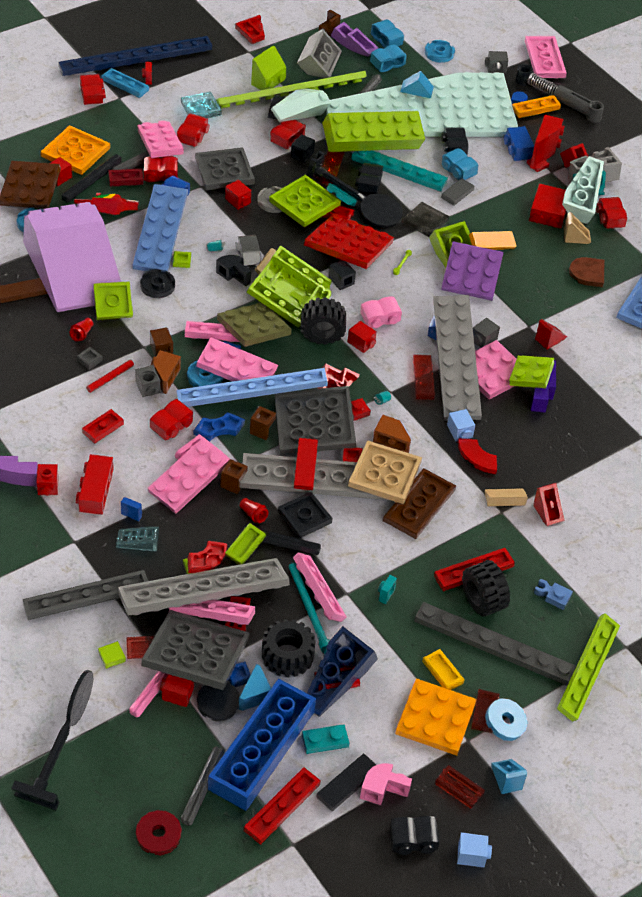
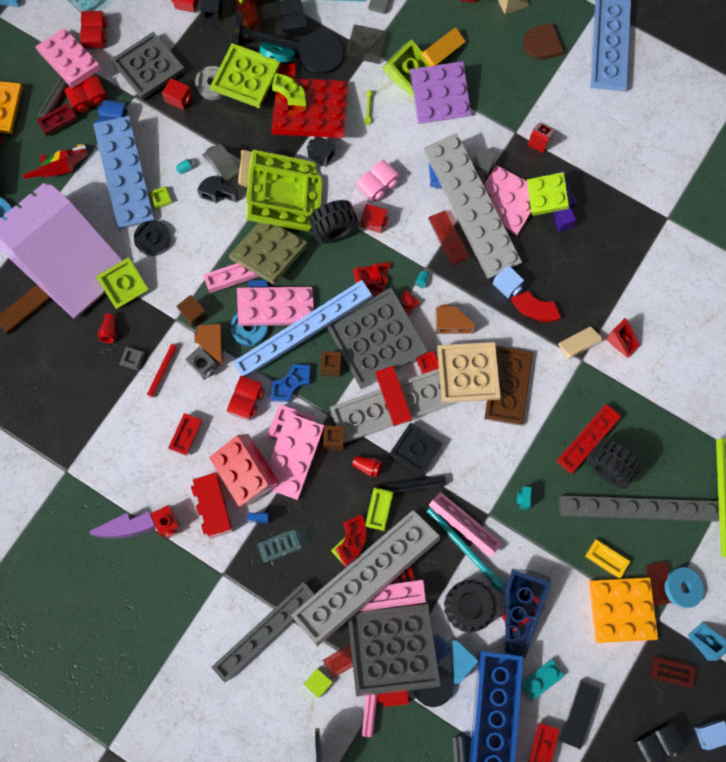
camera: 20 degrees left, 25 degrees up
(91, 178) = (23, 134): black axle -> none
(139, 465) = (243, 470): none -> brick
(337, 220) = (290, 89): none -> lime tile
(381, 779) = (606, 705): bright pink brick -> none
(555, 595) = (668, 431): medium blue plate -> none

